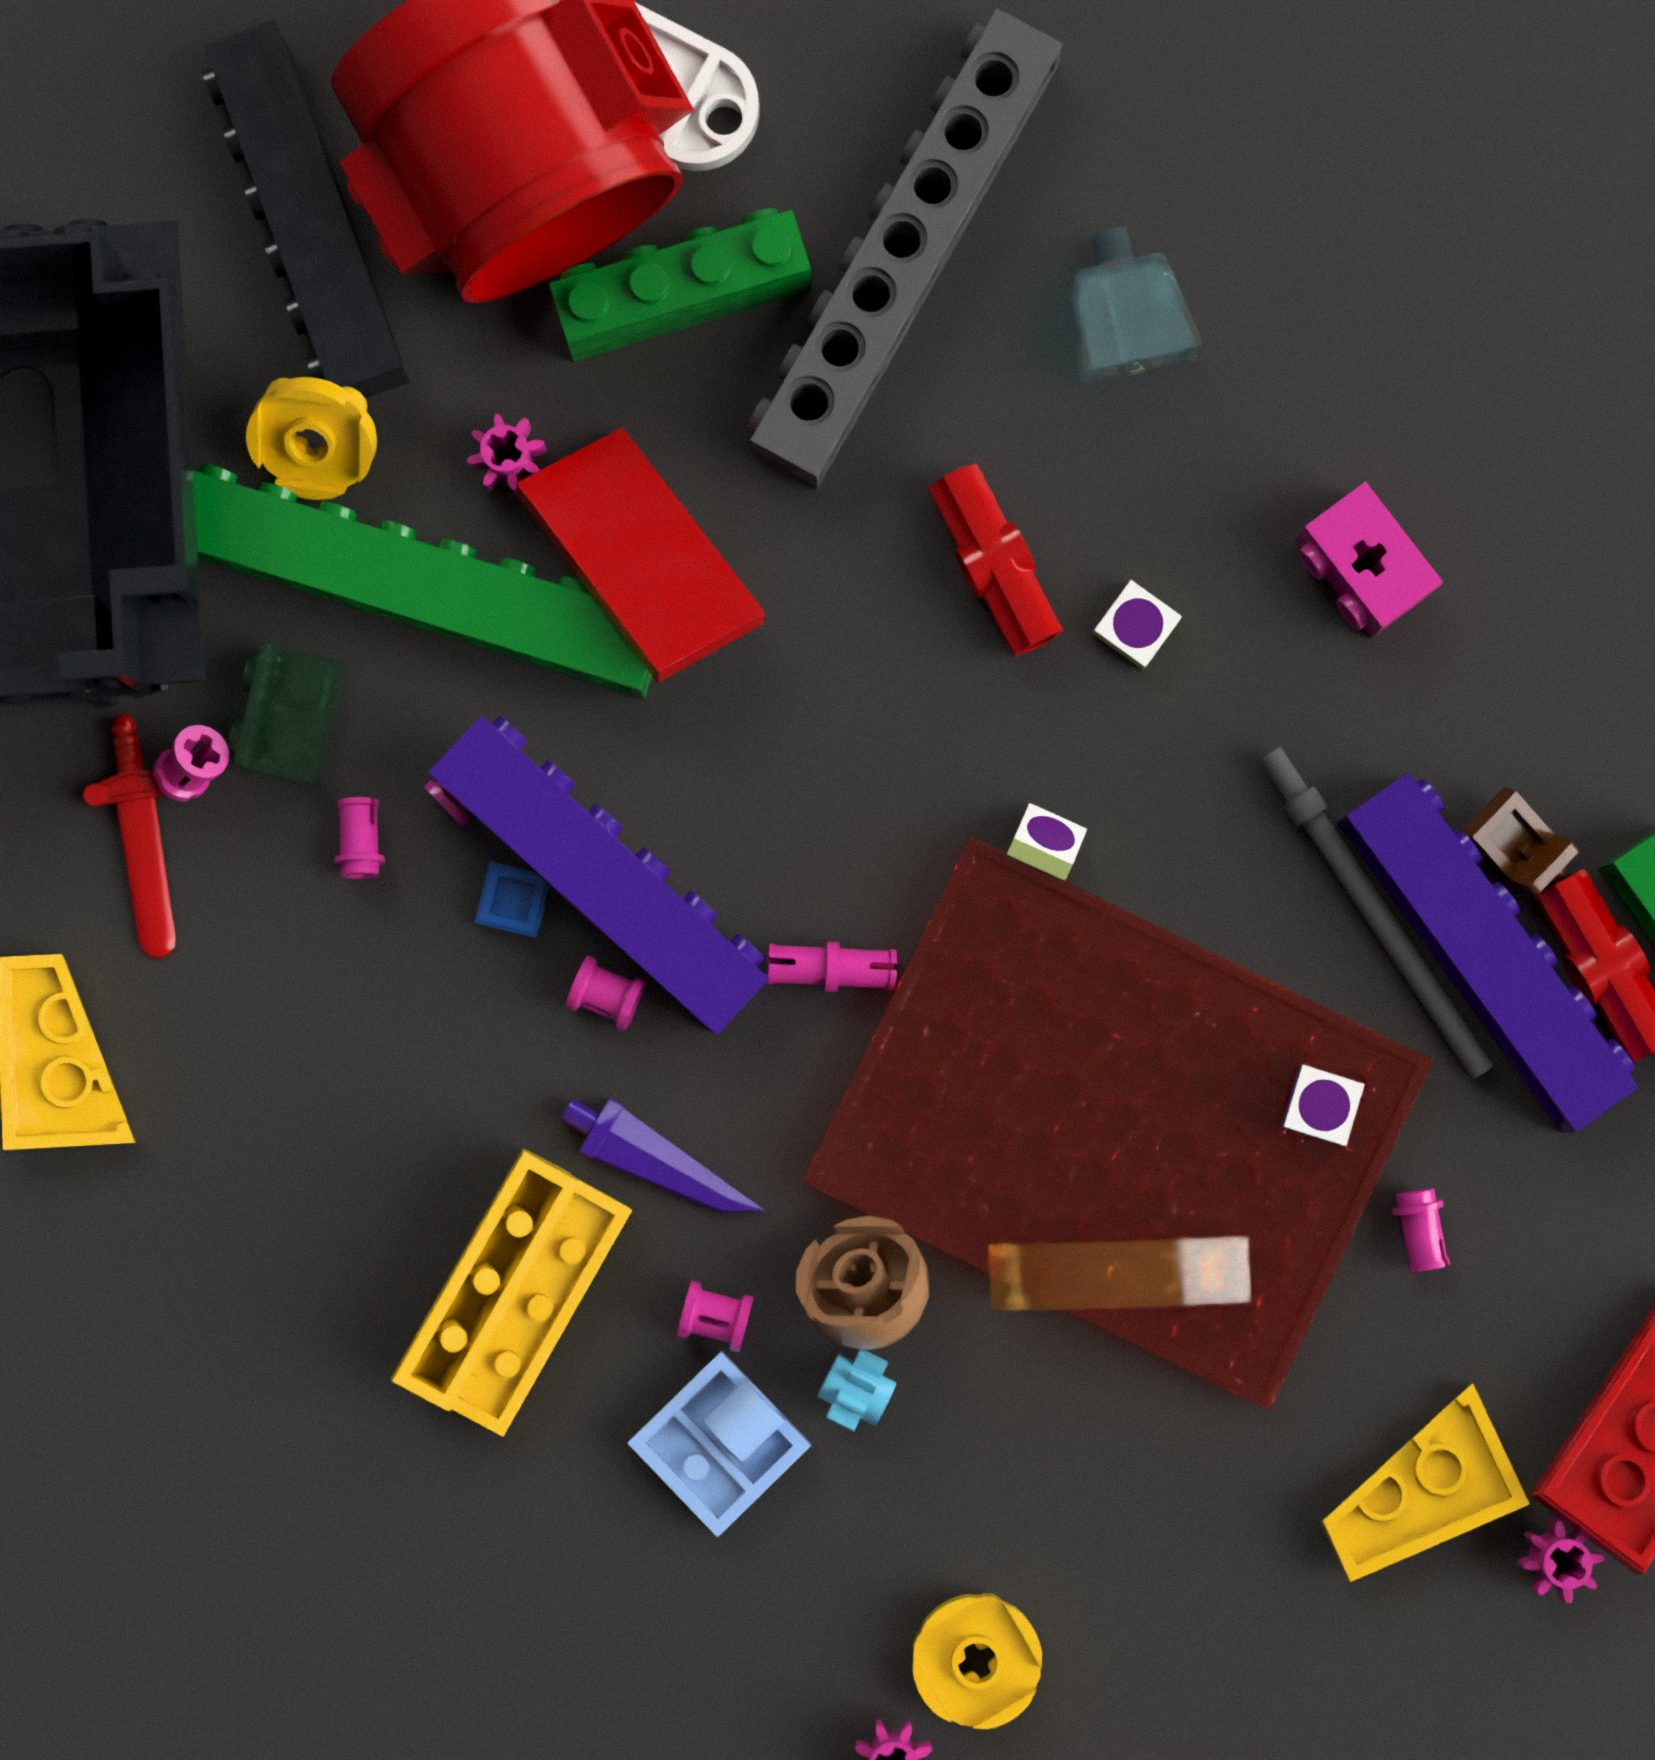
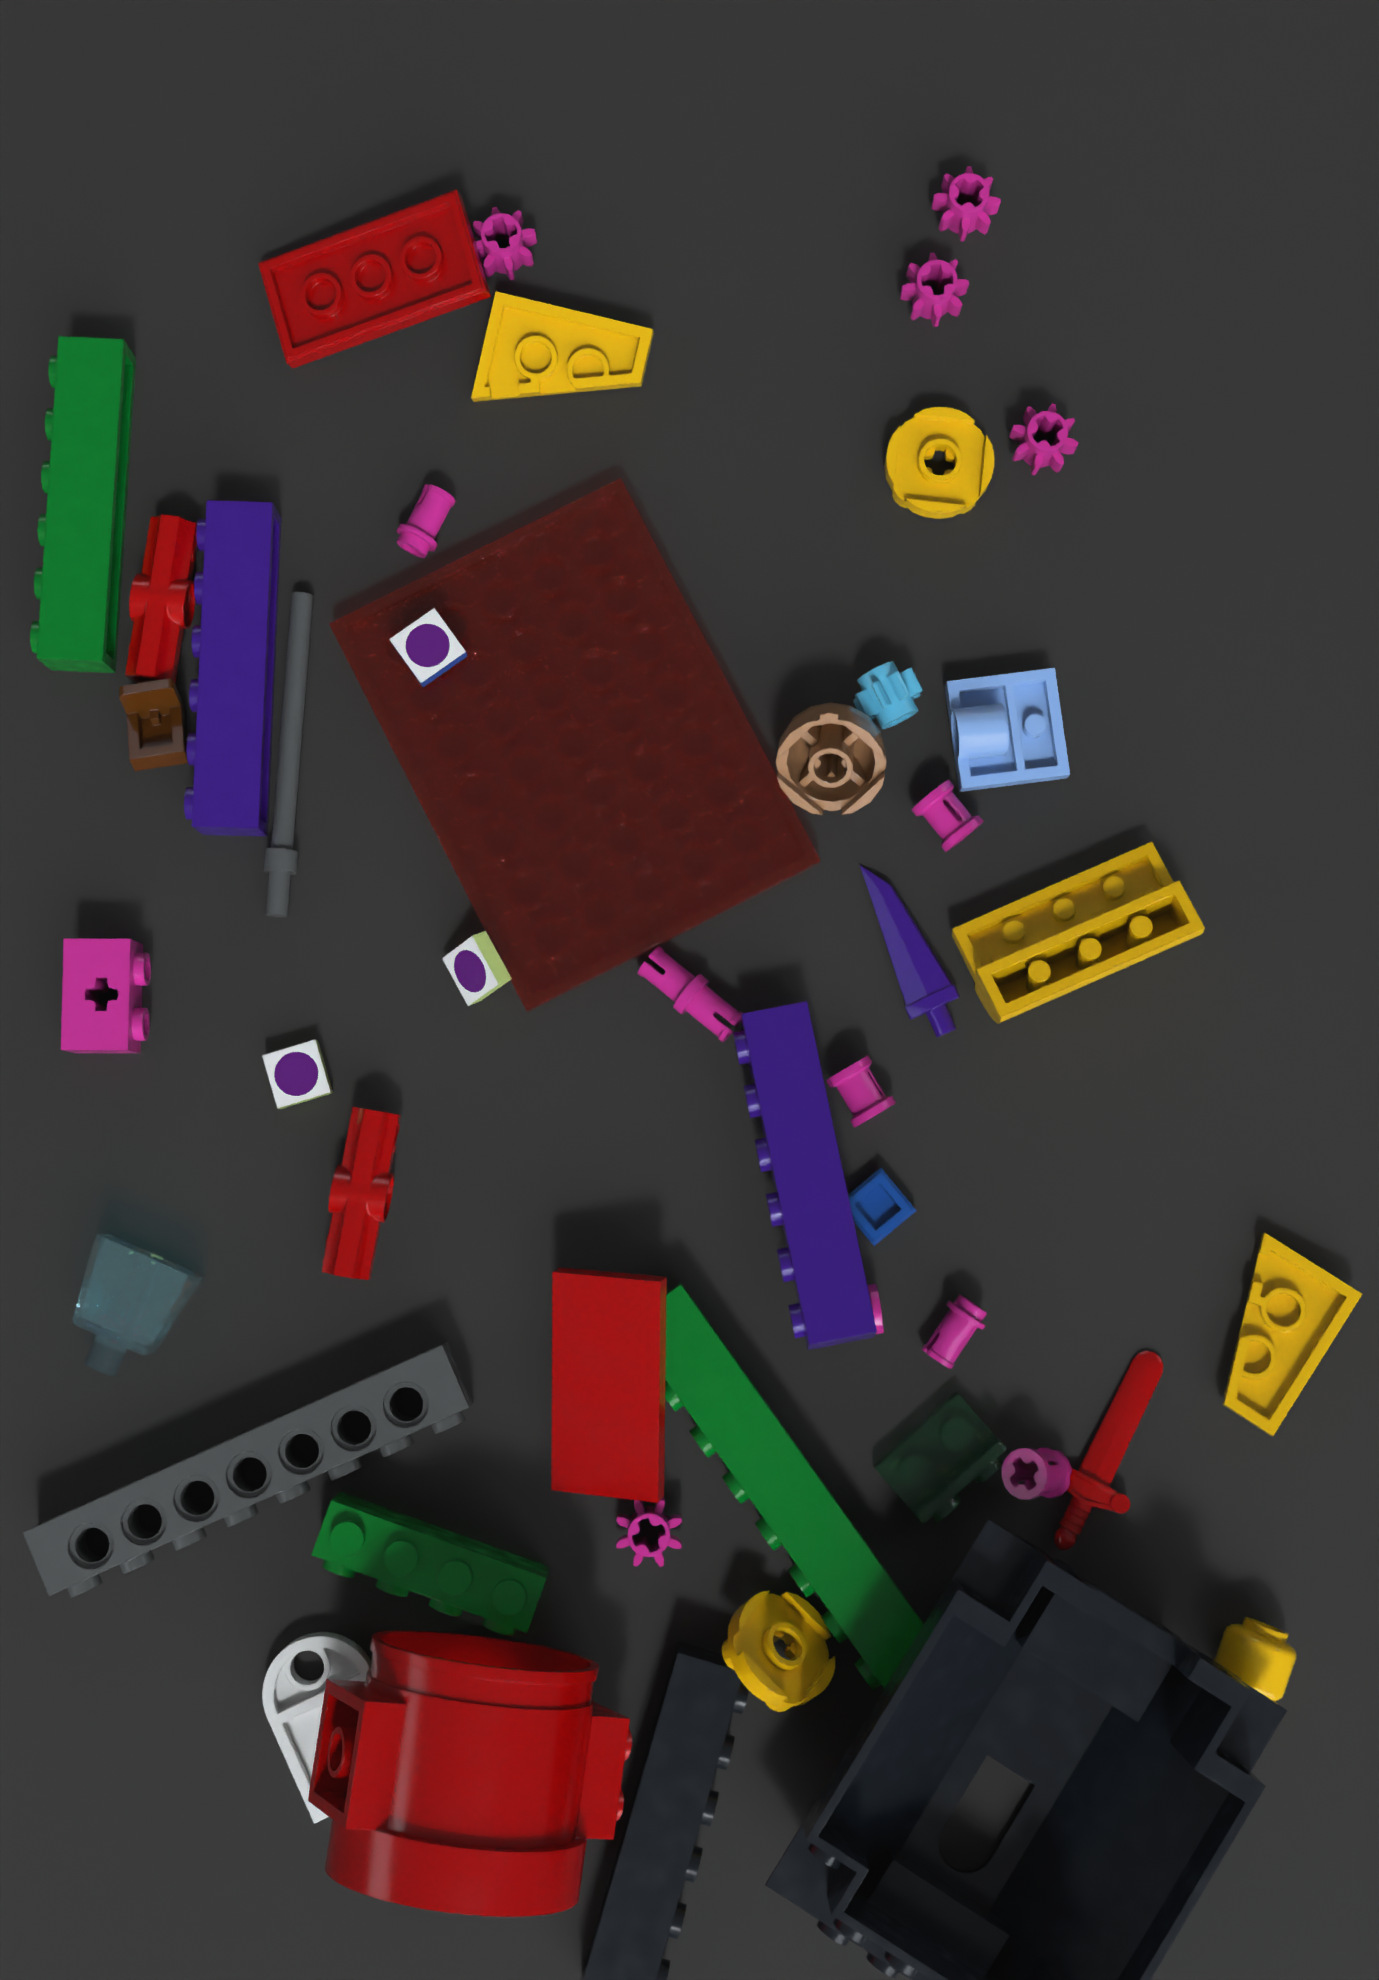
camera: 150 degrees left, 0 degrees up
(1119, 1273) = (654, 637): clear orange slope -> none

